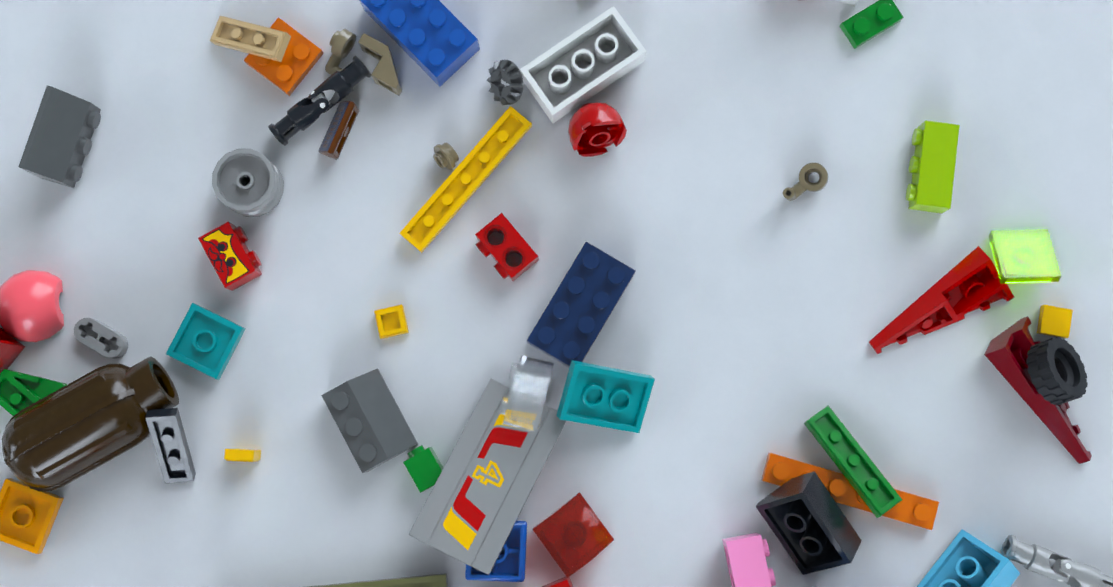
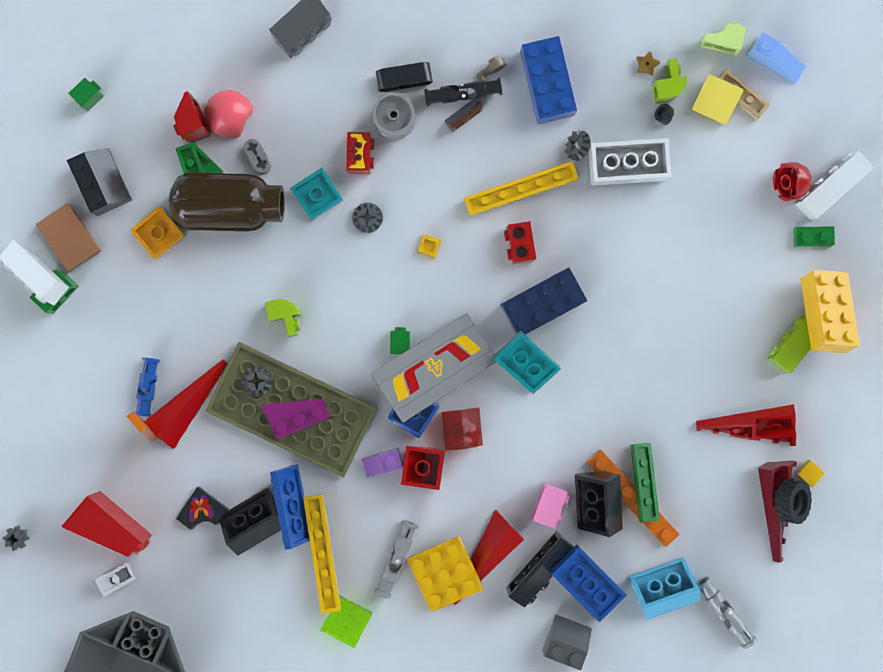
camera: 25 degrees right, 5 degrees up
(170, 445) = (264, 243): plate -> none
(233, 126) = (404, 76): none -> black beam
(242, 455) = (301, 272): yellow tile -> none
(250, 38) = (444, 30): tan tile -> none
(251, 517) = (284, 309): none -> lime brick
(296, 62) = (456, 52): orange plate -> none
(302, 336) = (373, 224): none -> dark grey gear
(369, 420) = (384, 295): dark grey slope -> none
(385, 71) = (511, 97): dark tan slope -> none
(445, 156) = (517, 168): dark tan plate -> none
(527, 394) = (484, 334): clear brick -> none
(595, 128) = (613, 203): red cylinder -> none
(804, 183) = (715, 308): dark tan plate -> none
(950, 102) = (829, 311): none -> yellow brick
(1024, 256) = (816, 426): clear neon green tile -> none

